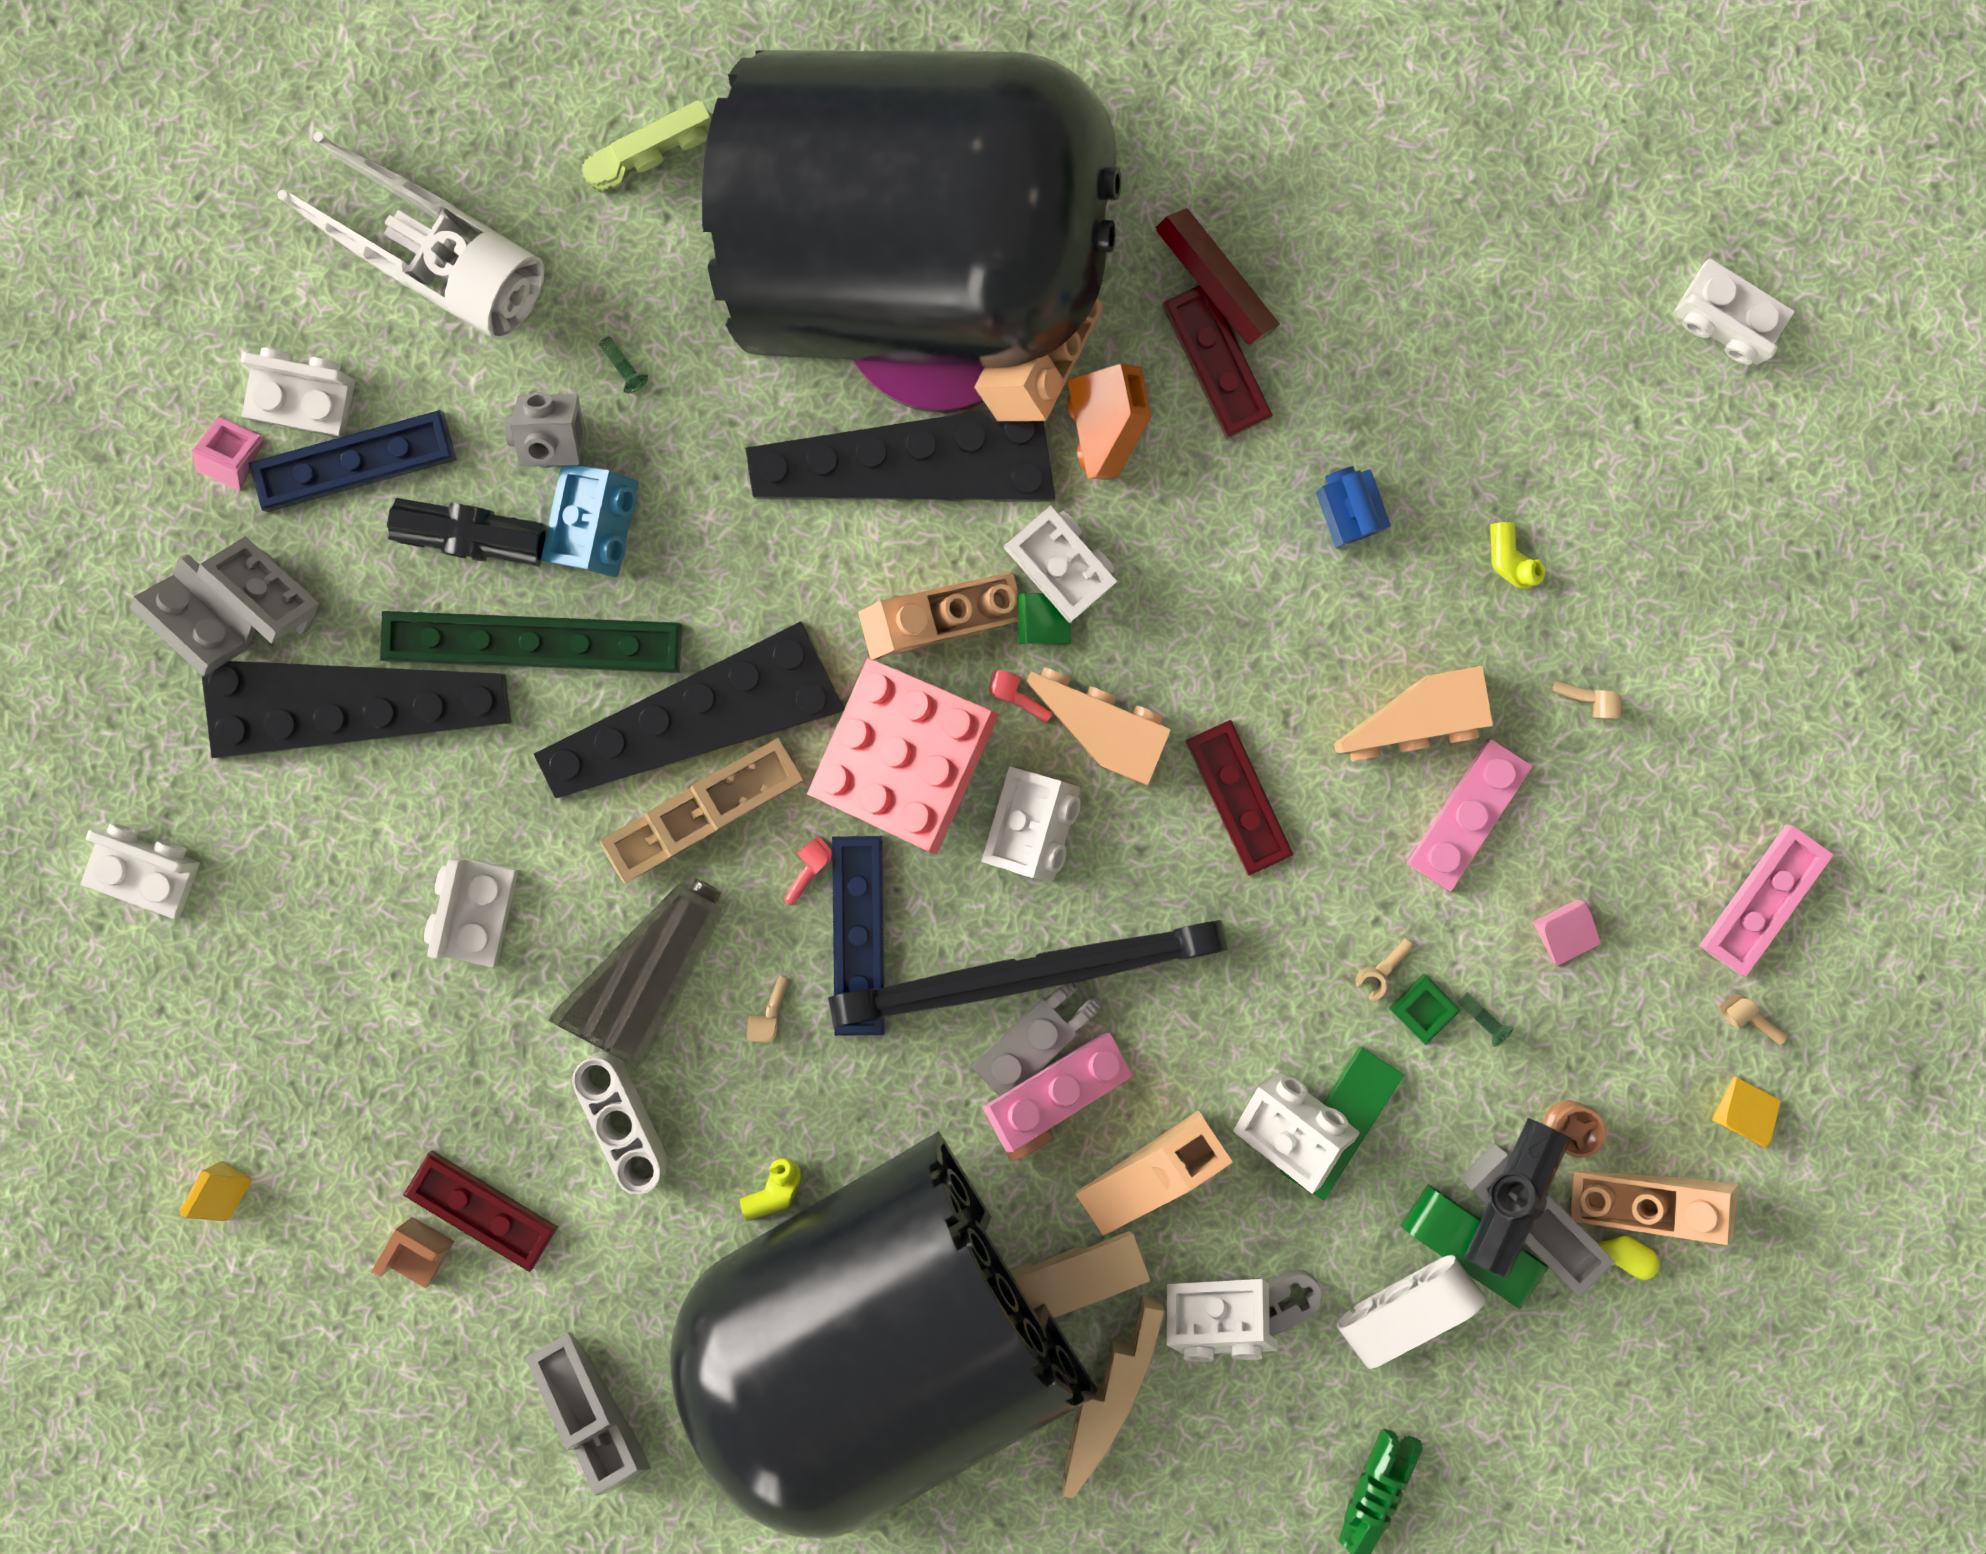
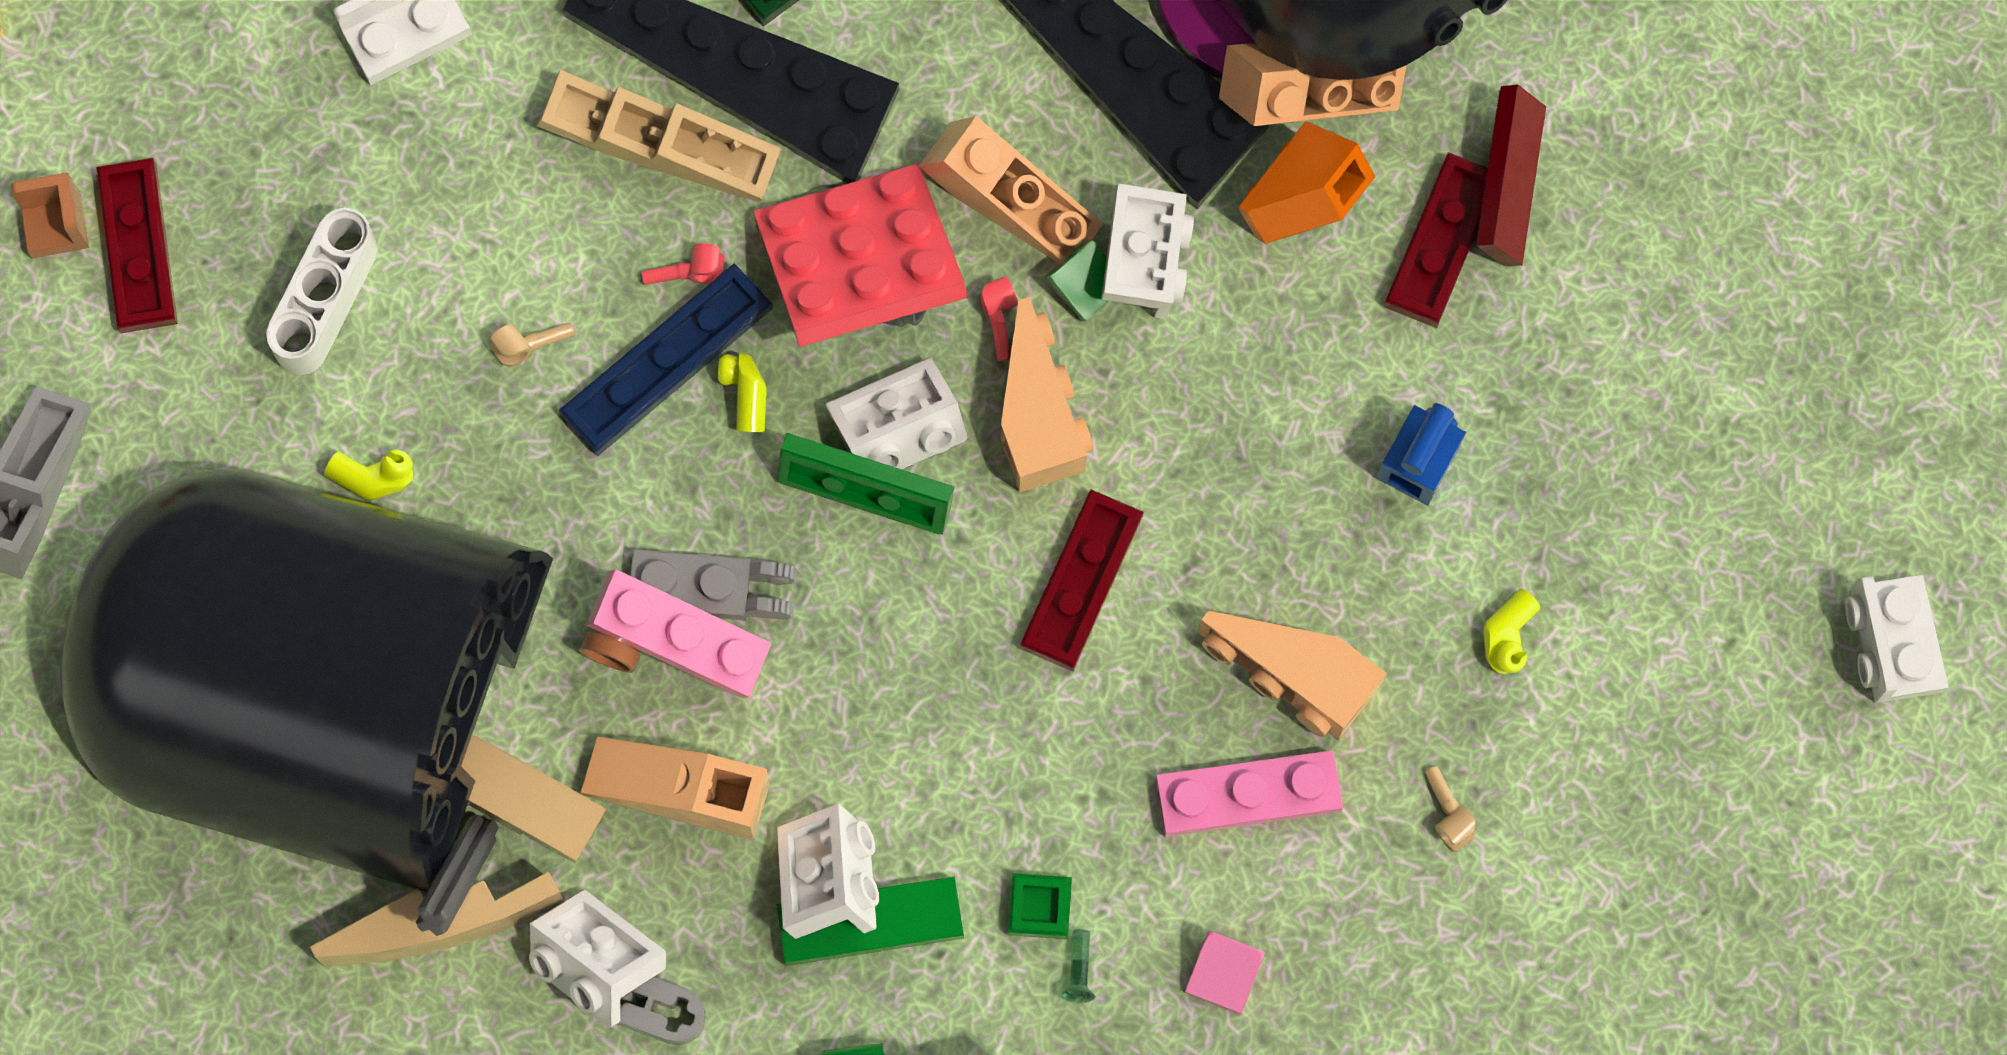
camera: 45 degrees right, 15 degrees down
(641, 980) = (472, 206): clear smoke slope -> none
(928, 900) = (751, 390): none -> neon yellow arm
(1027, 975) = (913, 639): black piece -> none
(1058, 884) = (865, 484): none -> green tile
(1101, 1372) = (457, 875): none -> dark grey axle
(1383, 969) = (1043, 838): tan hand -> none

